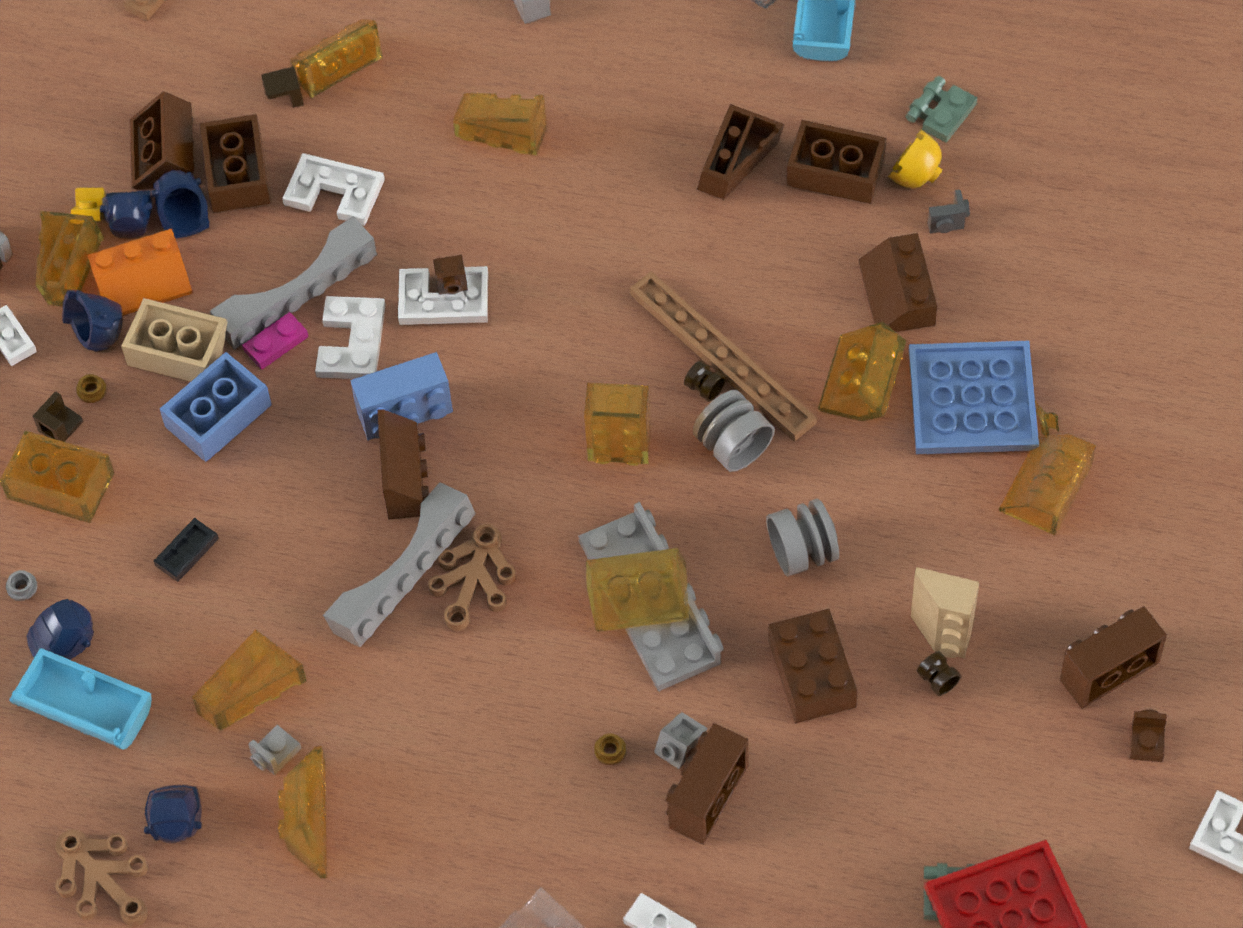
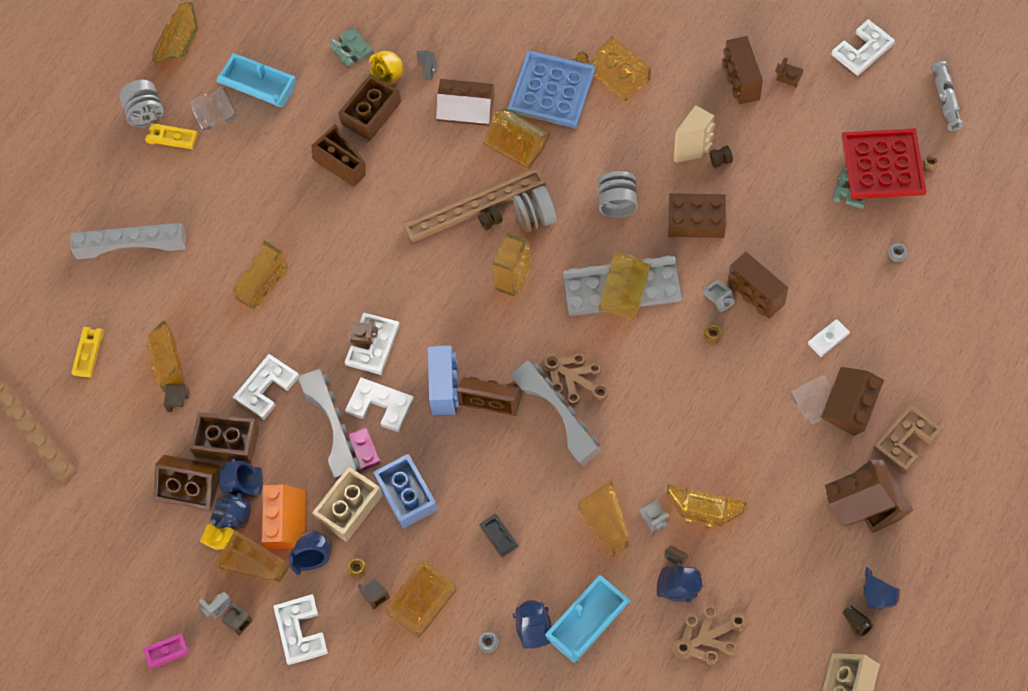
camera: 70 degrees left, 5 degrees up
(218, 795) = (675, 555): none -> clear smoke slope

